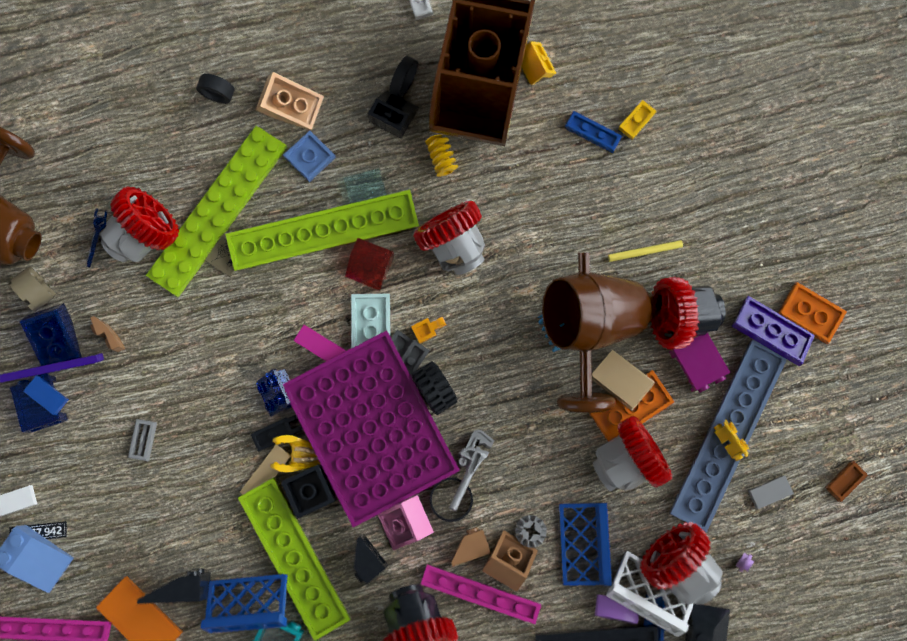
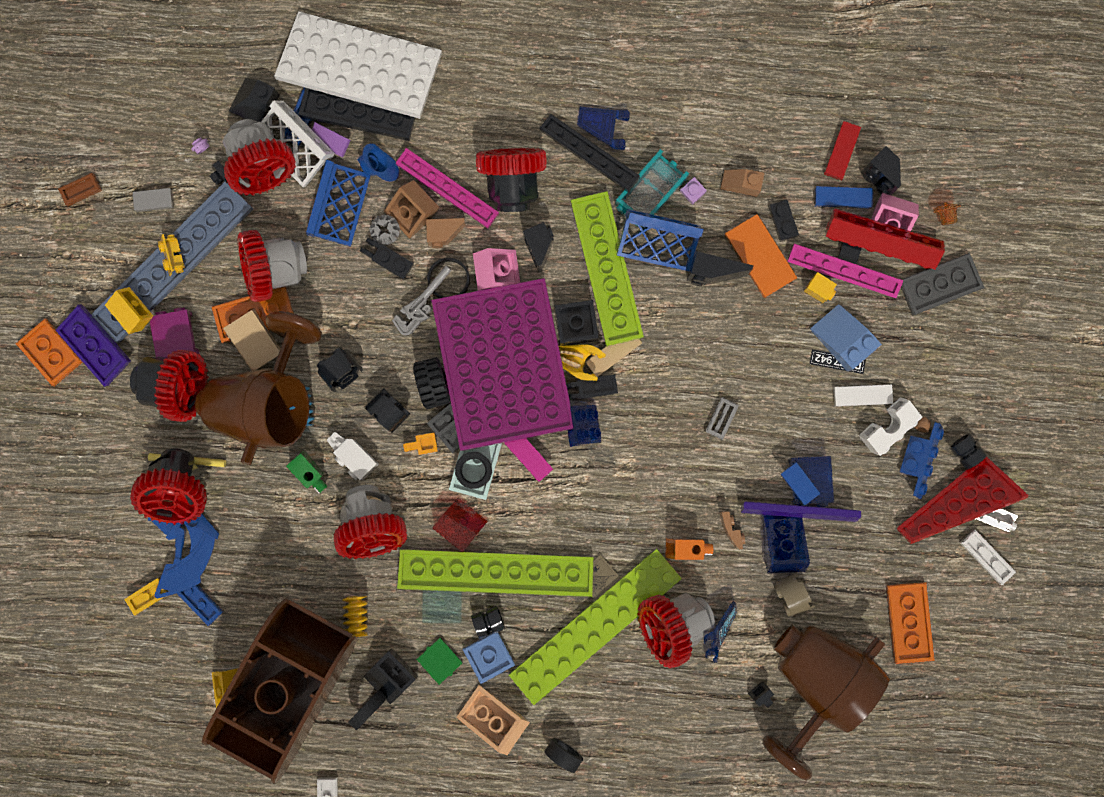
camera: 160 degrees left, 5 degrees up
(45, 192) = (761, 695): none -> black tile
(68, 603) = (820, 288): none -> yellow brick
(145, 302) = (682, 549): none -> orange torso
(317, 184) = (488, 622): none -> black wheel
(353, 140) = (439, 661): none -> green piece
(355, 314) = (463, 459): none -> black tyre
(470, 349) = (387, 410): none -> black brick
(490, 298) = (353, 456): none -> white hinge
(517, 501) = (388, 259): none -> black hinge
(529, 271) = (301, 465): none -> green torso
(529, 375) = (339, 369): none -> black brick
(558, 598) = (378, 163): none -> blue piece
(608, 151) = (188, 571): none -> blue piece
(649, 216) = (170, 489): none -> red piece
(714, 536) = (218, 175): none -> black tile
(751, 371) = (129, 310): none -> yellow brick

